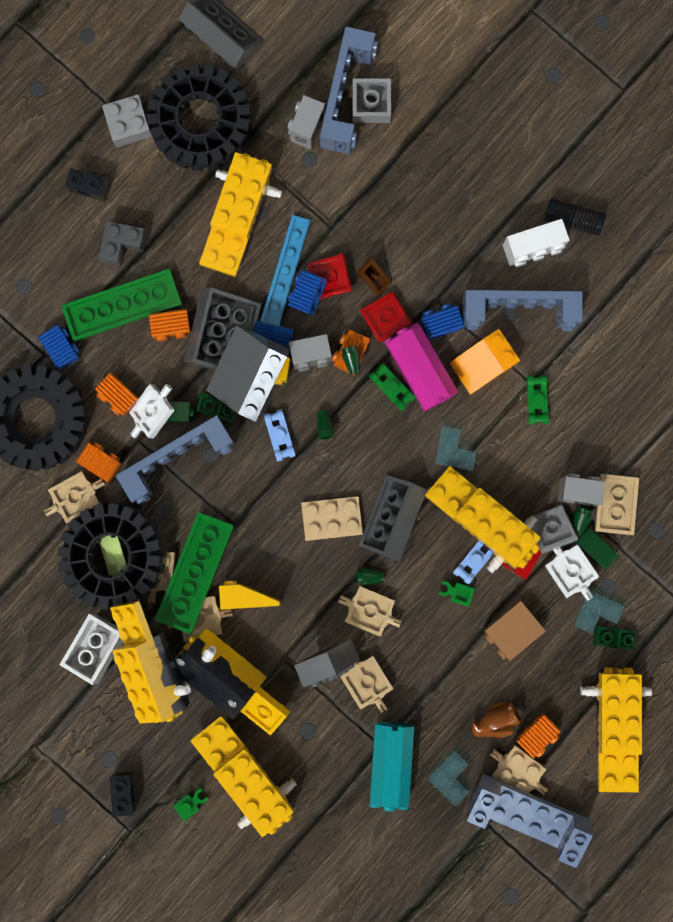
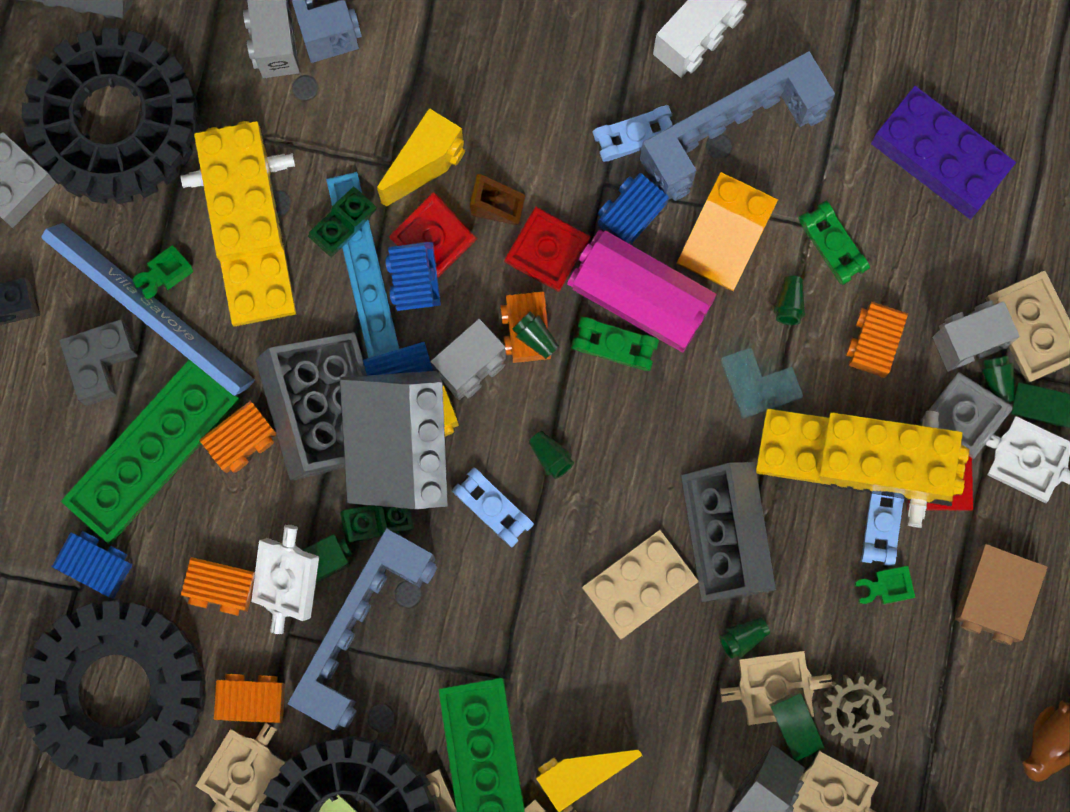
camera: 30 degrees left, 5 degrees down
(161, 230) = (148, 310): none -> medium blue tile
(182, 214) = (164, 269): none -> green plate
(287, 242) = (342, 222): none -> dark green slope
(350, 231) = (424, 157): none -> yellow slope
(368, 636) = (796, 726): none -> dark green slope
(406, 653) = (859, 698): none -> dark tan gear
(466, 280) = (631, 133): none -> light blue plate
(496, 417) = (790, 303): none -> dark green cone
(529, 463) = (877, 339): none -> orange brick
(623, 385) = (942, 152): none -> dark purple brick

